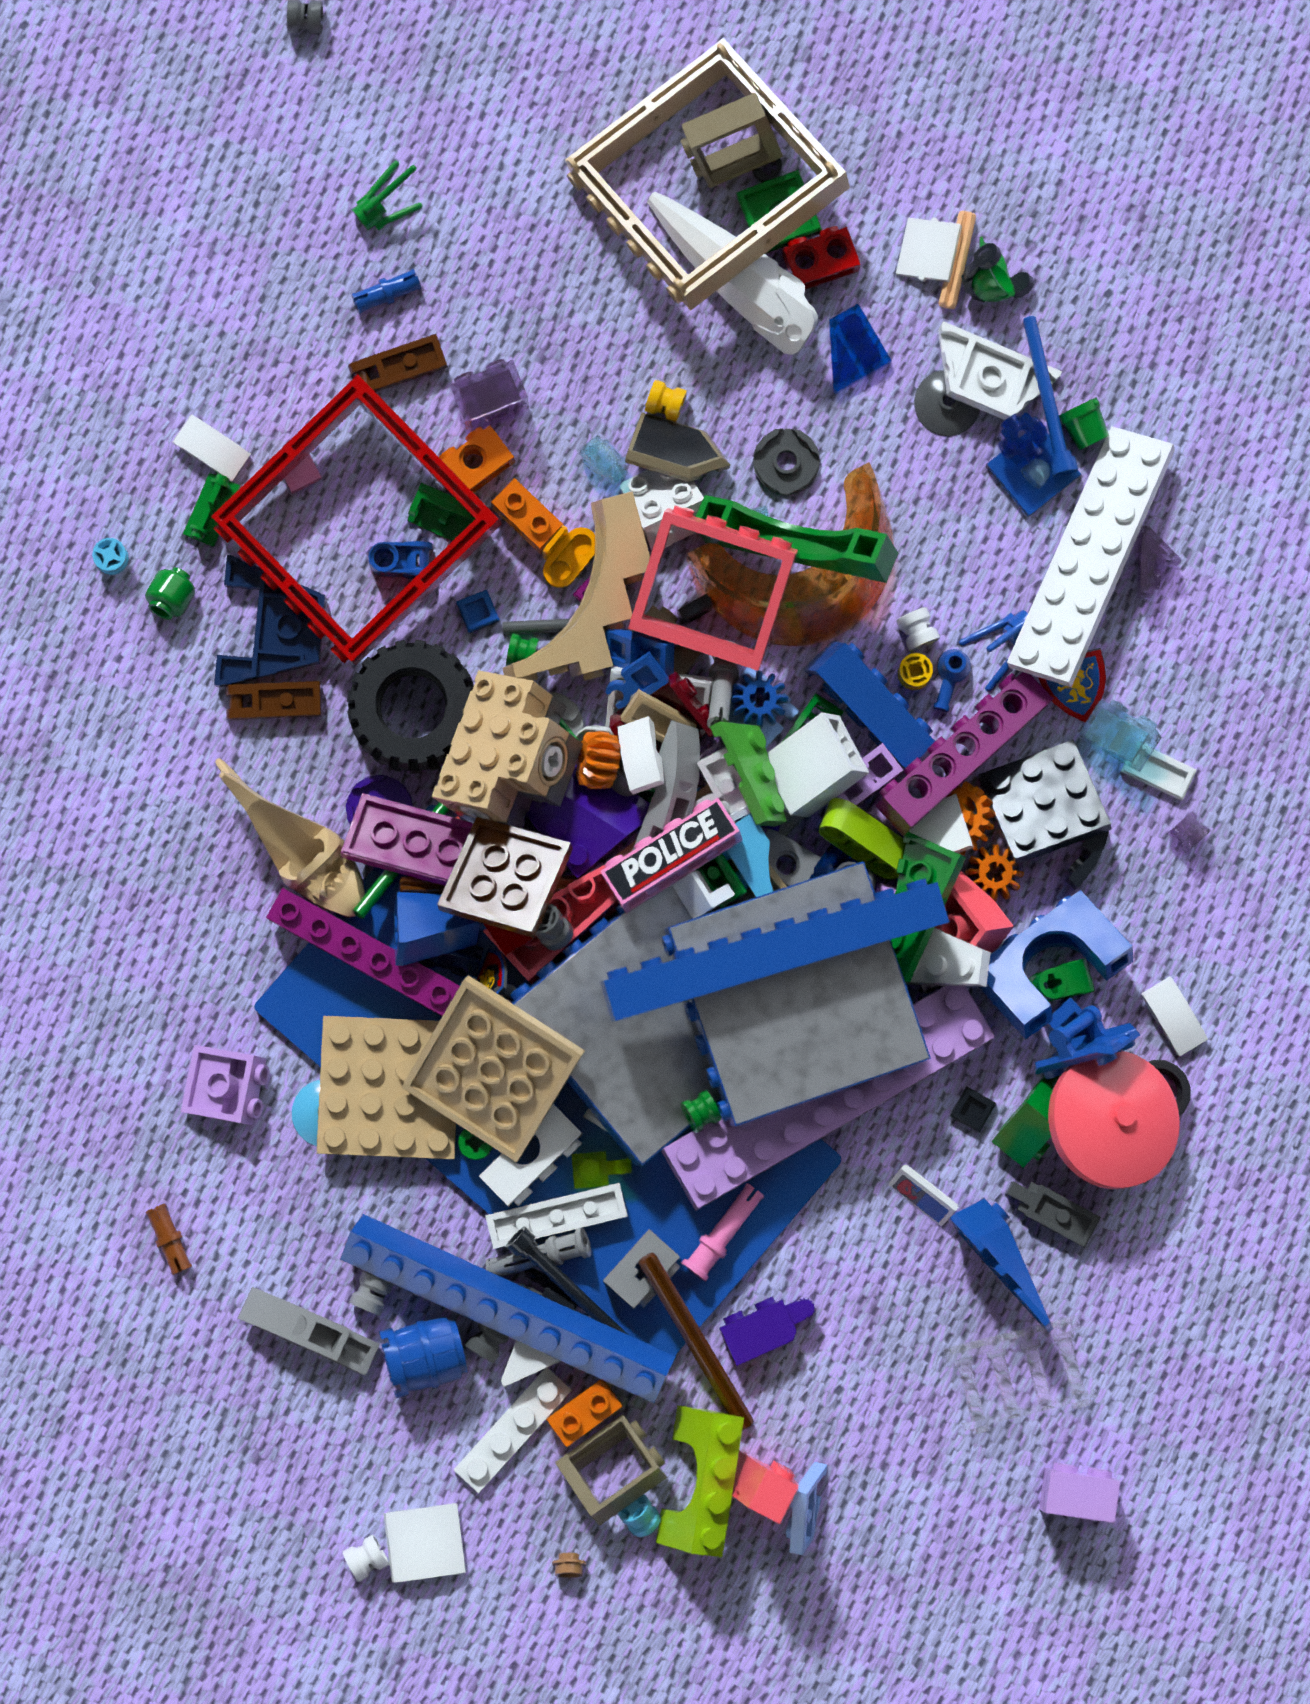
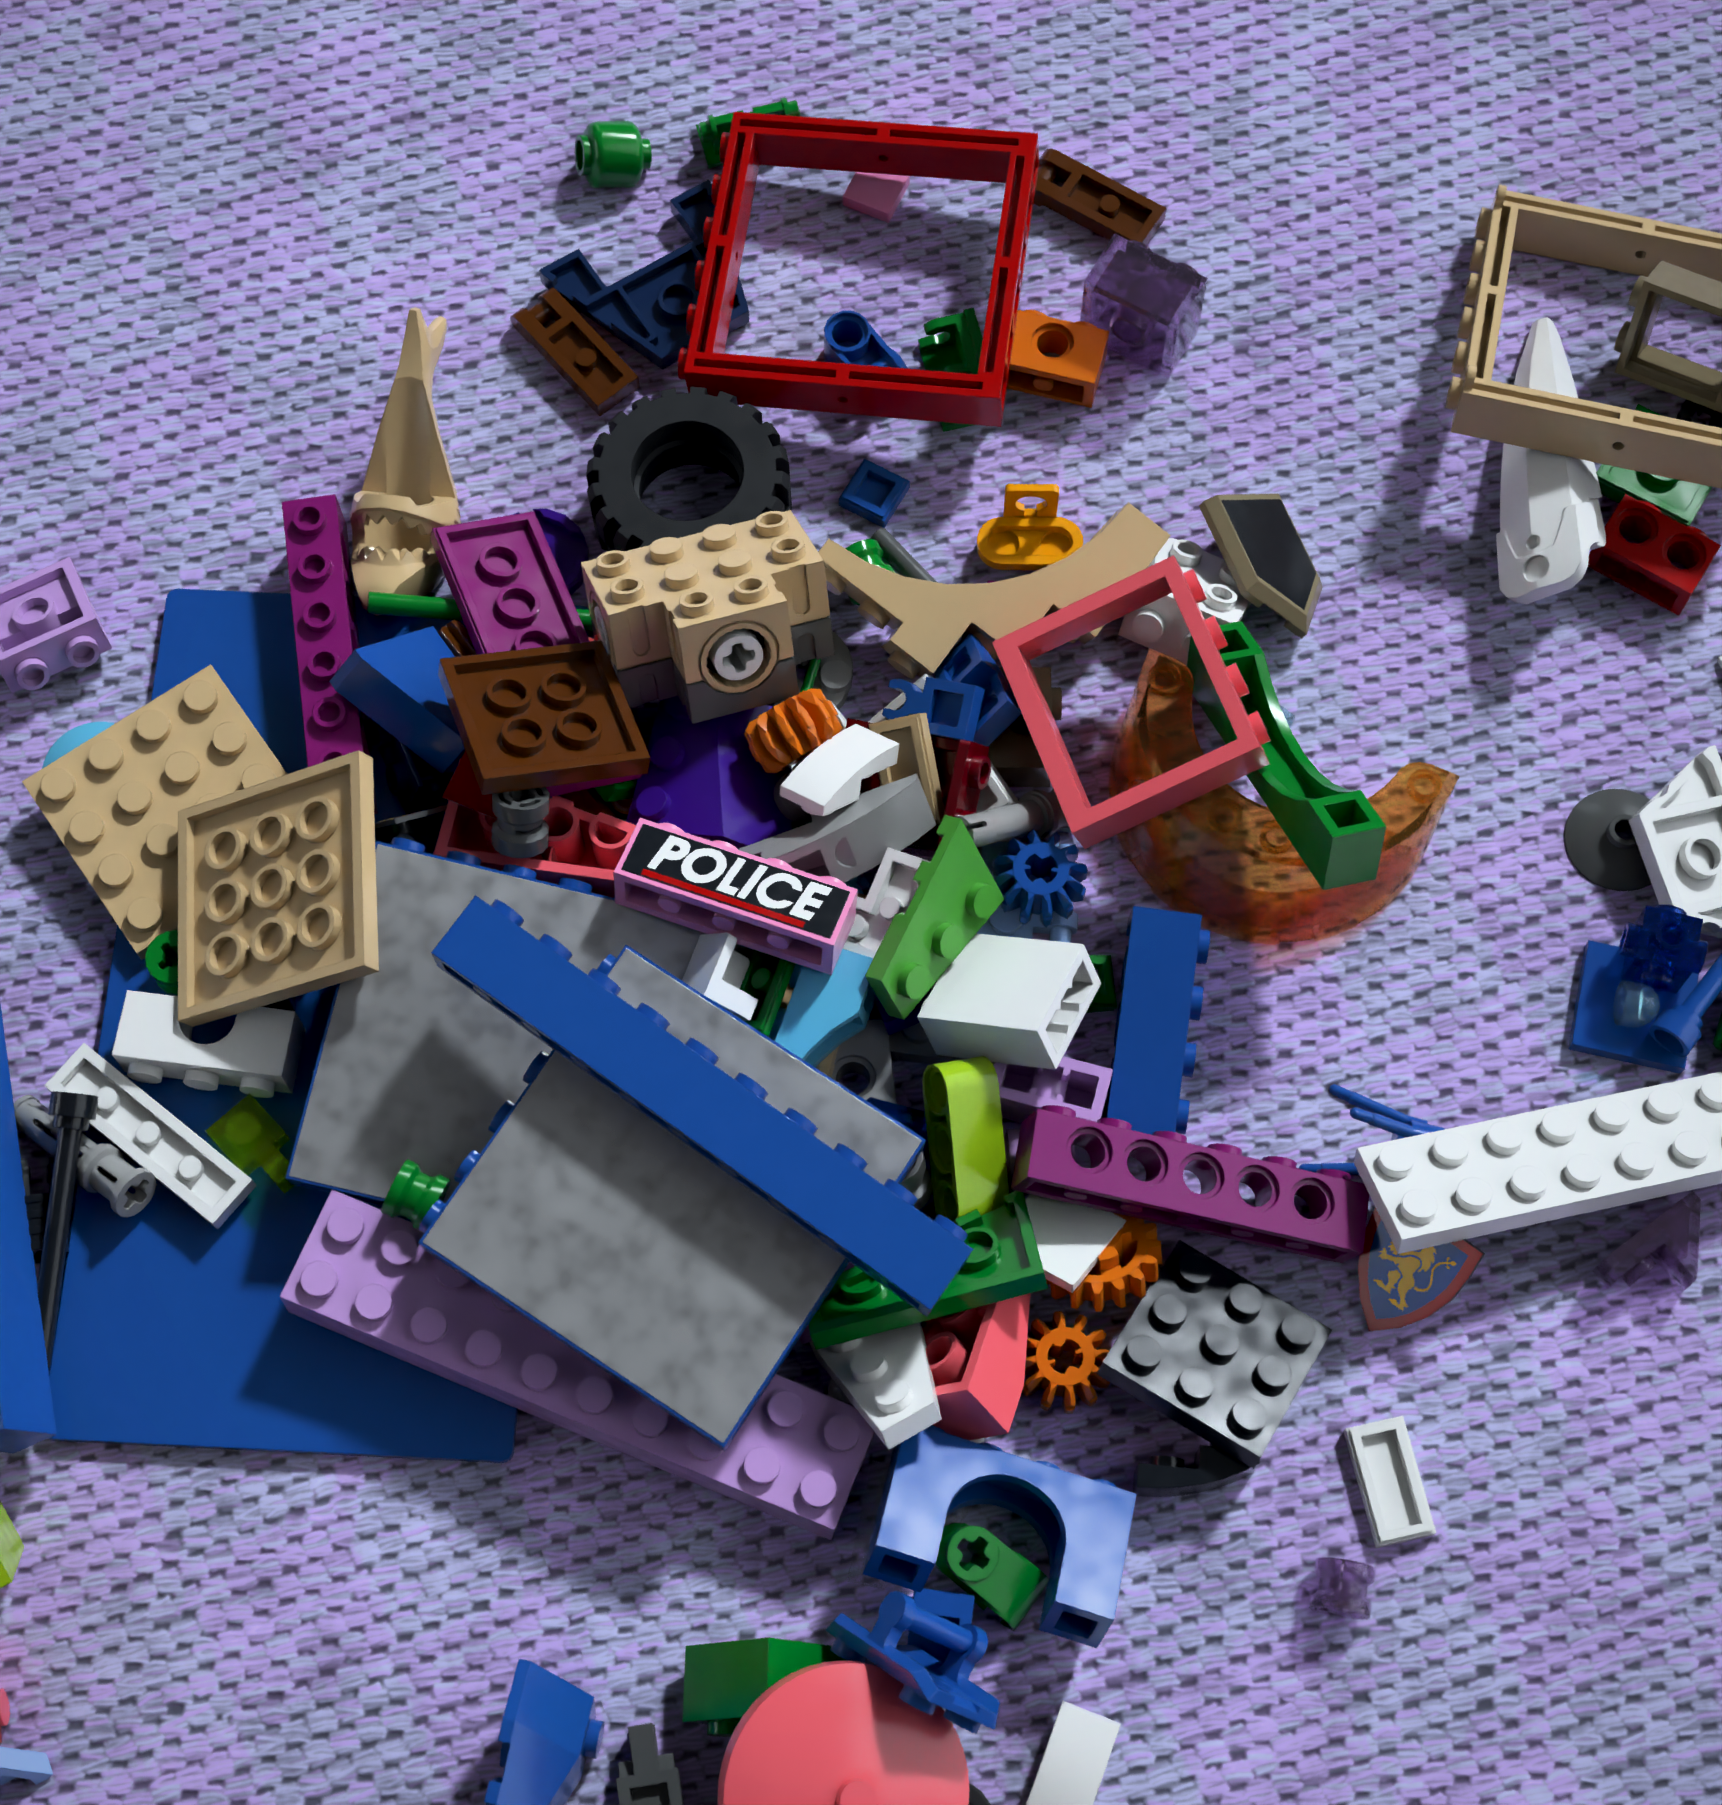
camera: 55 degrees right, 15 degrees down
(105, 552) = (613, 60): medium azure wheel -> none
(211, 447) = (822, 77): white slope -> none
(369, 207) = (1246, 48): green plant -> none
(386, 291) = (1167, 129): blue pin -> none
(526, 515) = (1038, 443): orange brick -> none
(604, 461) = (1178, 493): clear light blue brick -> none
(623, 1278) = (125, 1281): light grey brick -> none
(665, 400) = (1316, 506): yellow wheel -> none
(694, 1338) = (95, 1446): reddish brown axle -> none
(695, 609) = (1090, 728): black tile -> none
(713, 1245) = (255, 1369): bright pink pin -> none
(763, 1329) = (186, 1531): dark purple hinge -> none
(786, 481) = (1364, 731): dark grey tile -> none
(854, 348) = (1580, 678): clear blue wing -> none
(912, 677) = (1241, 1064): yellow wheel -> none
(917, 627) = (1303, 1012): white wheel -> none
(923, 1194) = (543, 1607): slope -> none
(950, 676) = (1278, 1107): blue bar -> none
(972, 1109) = (715, 1589): black tile -> none
(1120, 734) = (1394, 1386): clear light blue brick -> none

